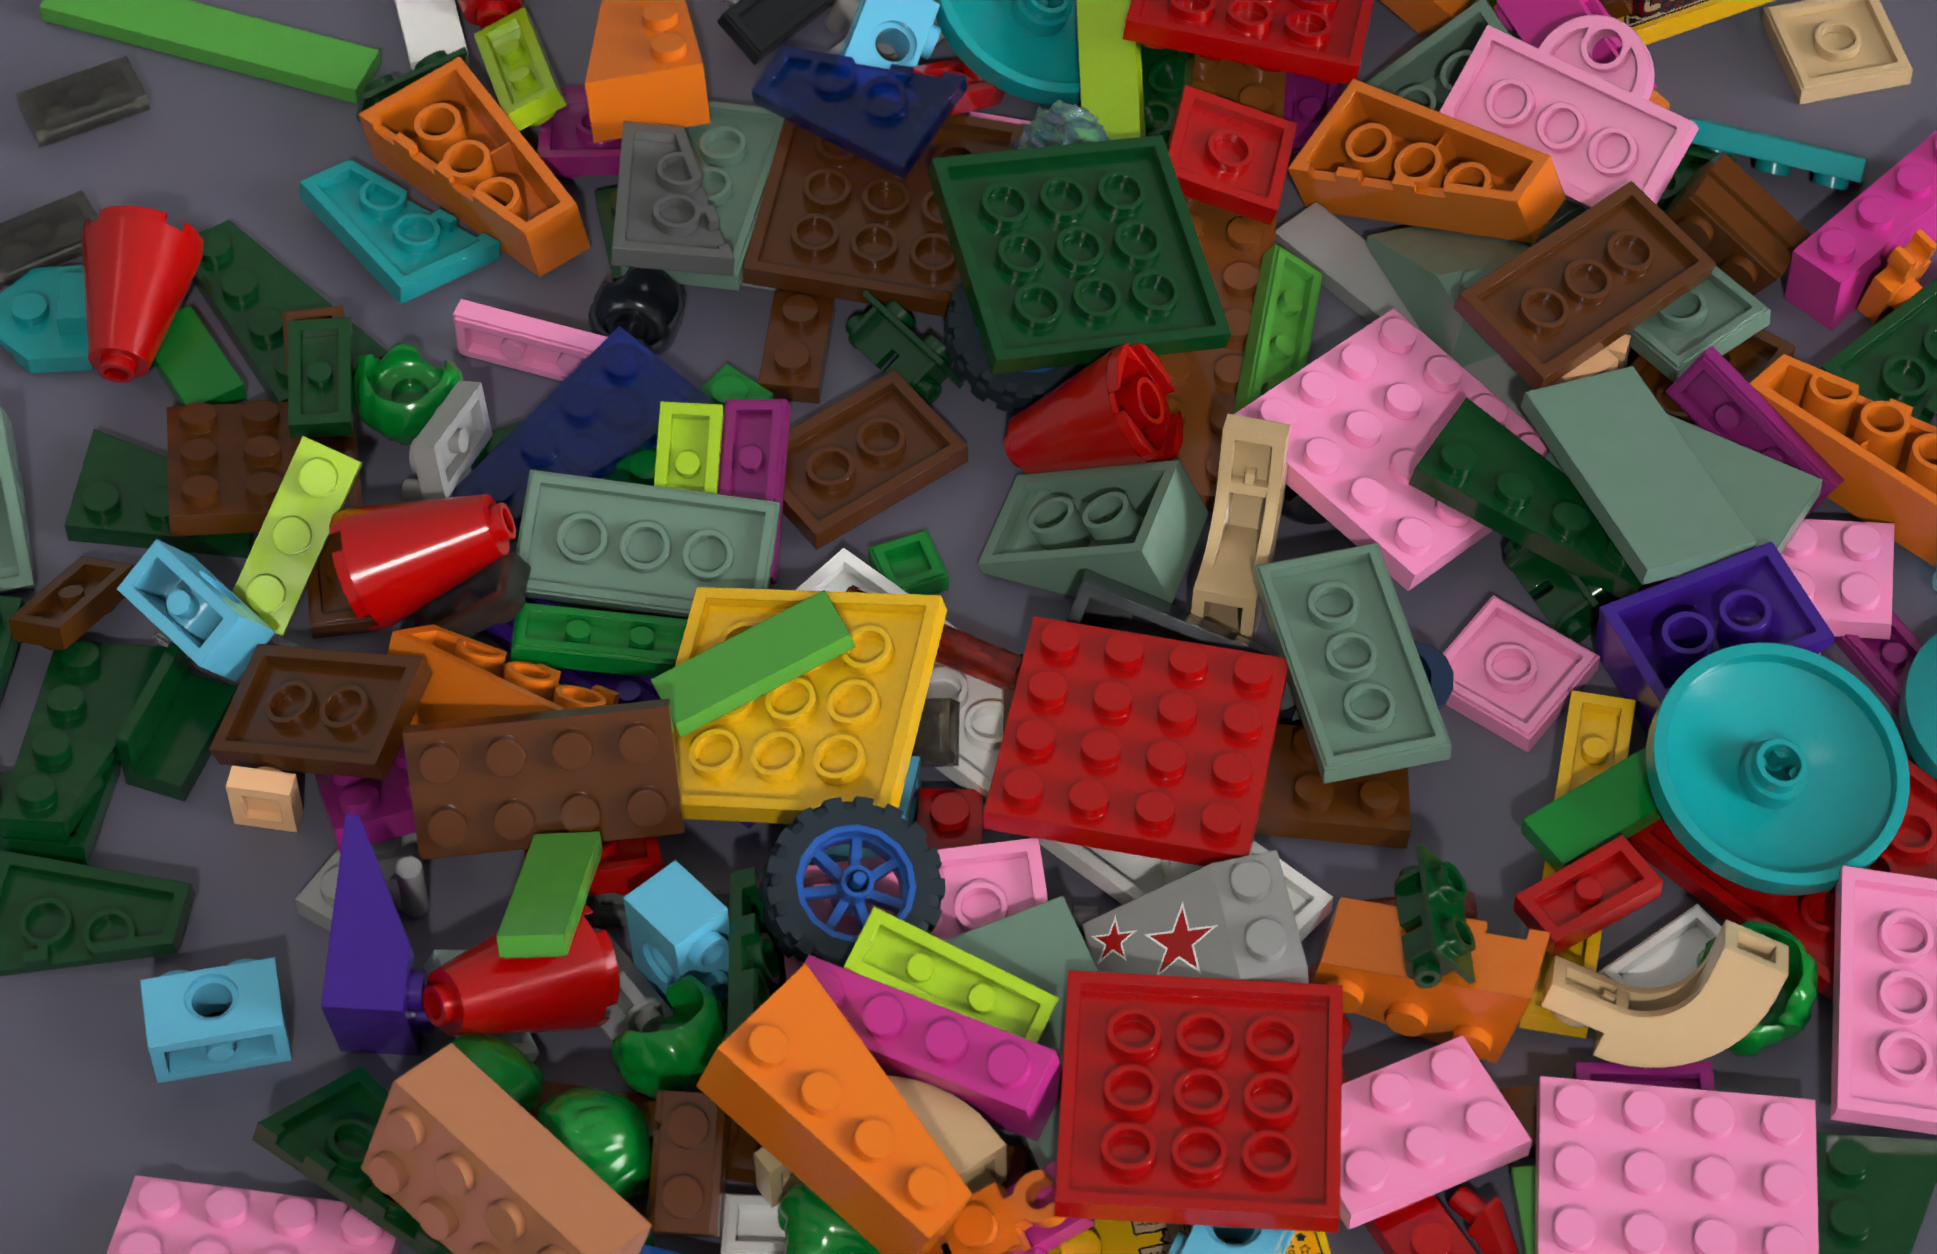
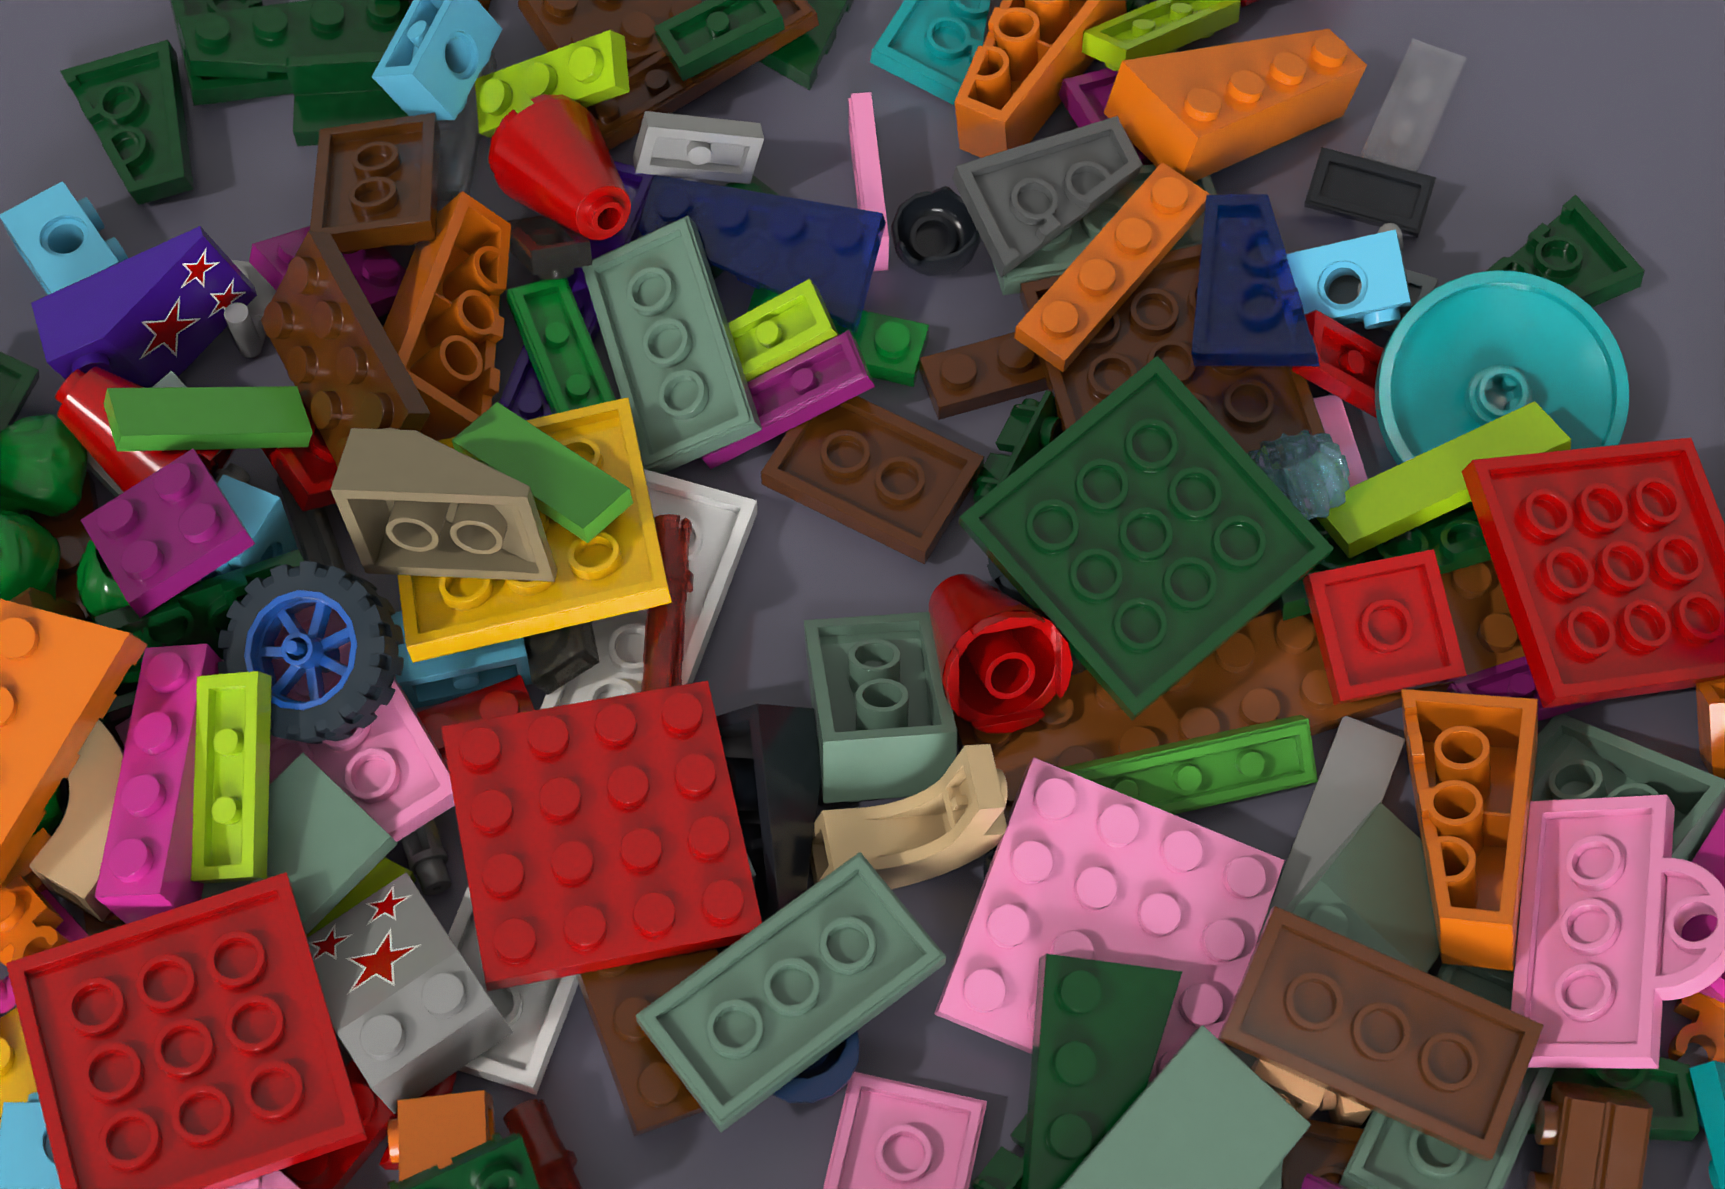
camera: 65 degrees right, 10 degrees up
(264, 798) = (297, 186): light nougat plate -> none
(401, 391) = (758, 91): green hair -> none
(671, 950) = (167, 533): none -> magenta plate
(773, 192) = (1111, 267): none -> orange plate
(781, 720) = (436, 511): none -> dark tan slope
(911, 564) = (777, 566): green tile -> none

